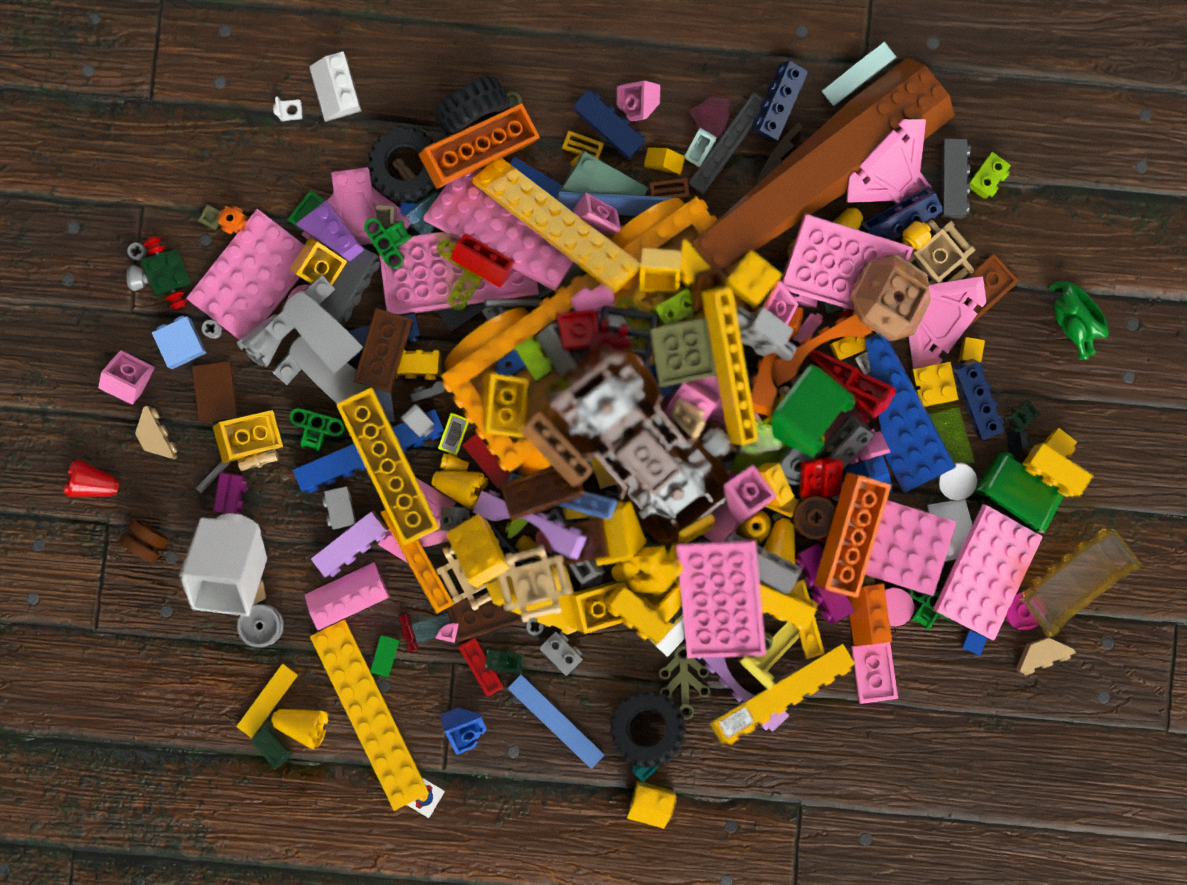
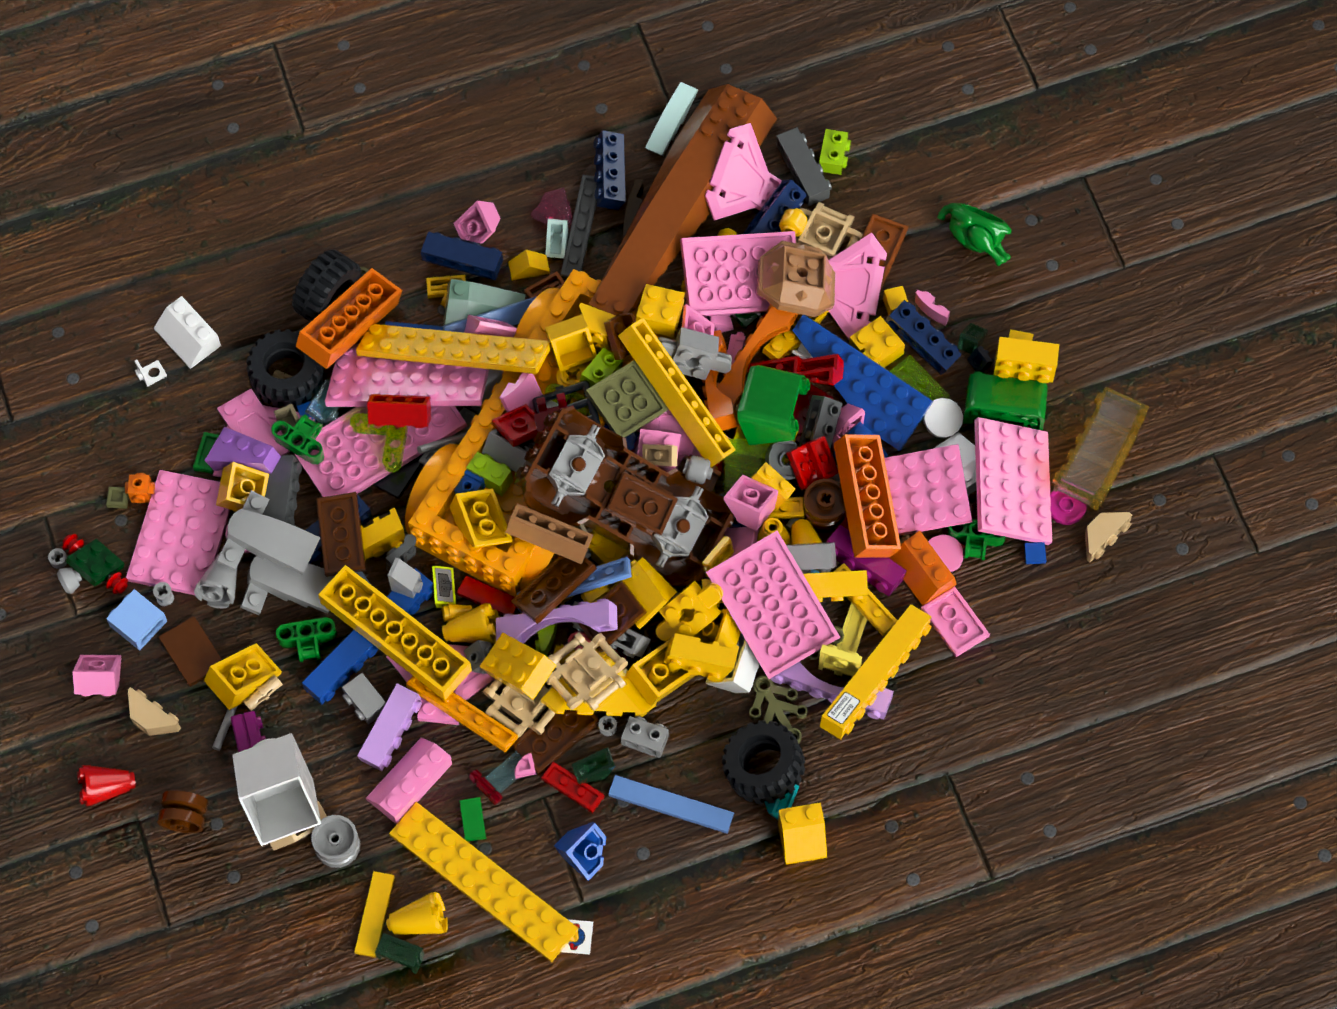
camera: 20 degrees left, 20 degrees down
(998, 363) = (926, 303): none -> bright pink slope

